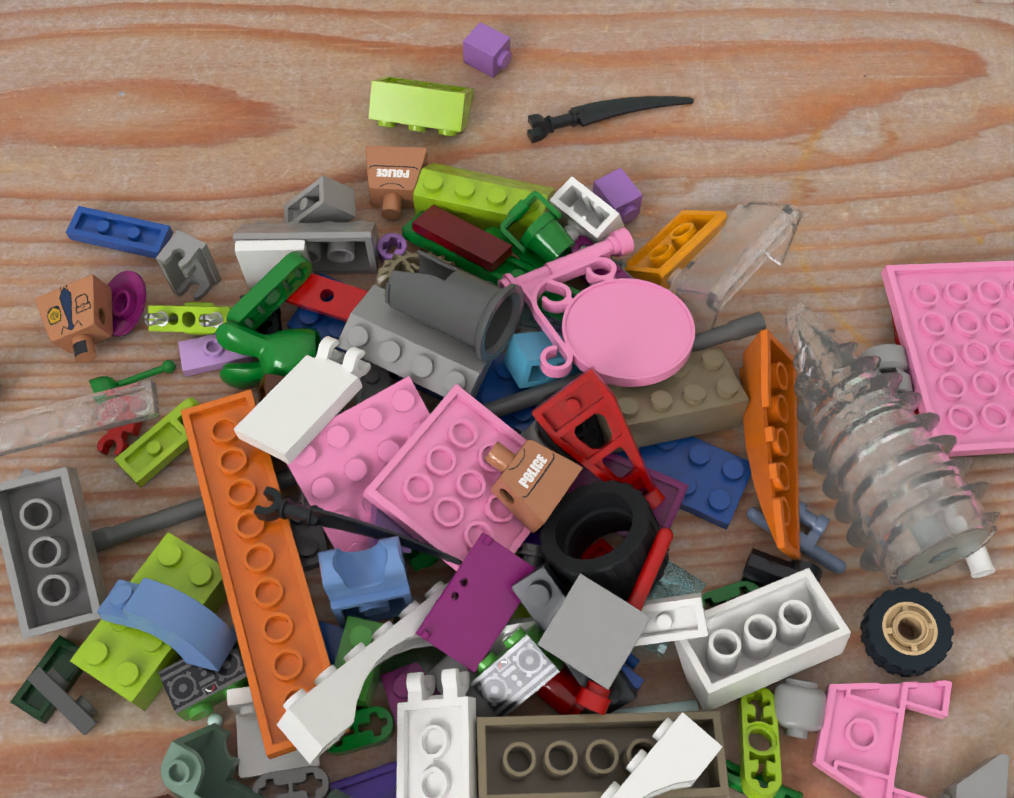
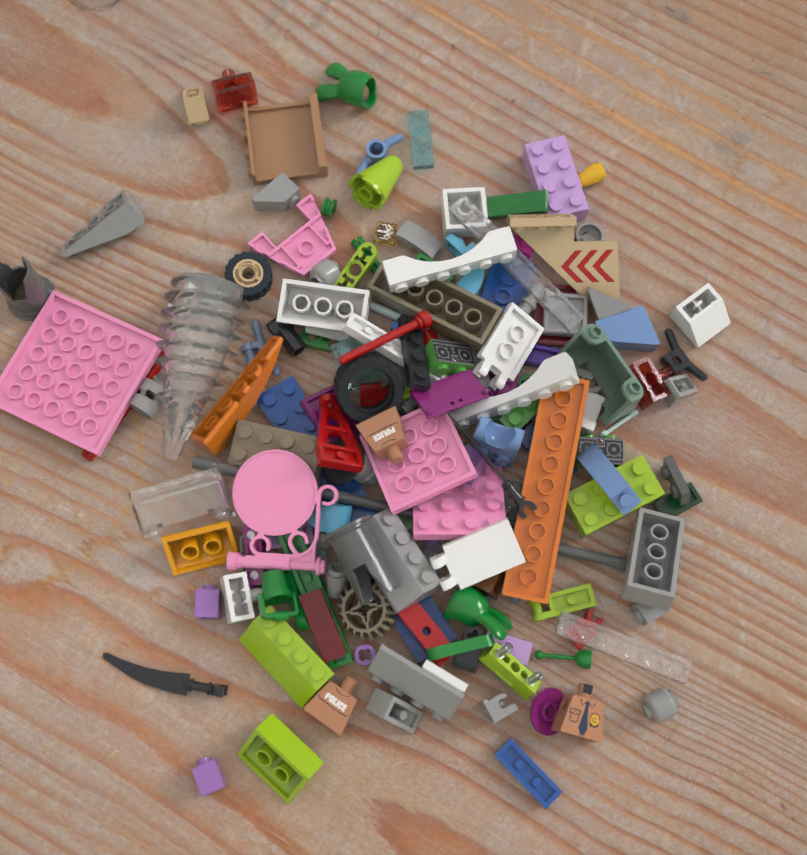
camera: 150 degrees left, 10 degrees up
(594, 631) = (406, 340): light grey tile -> none

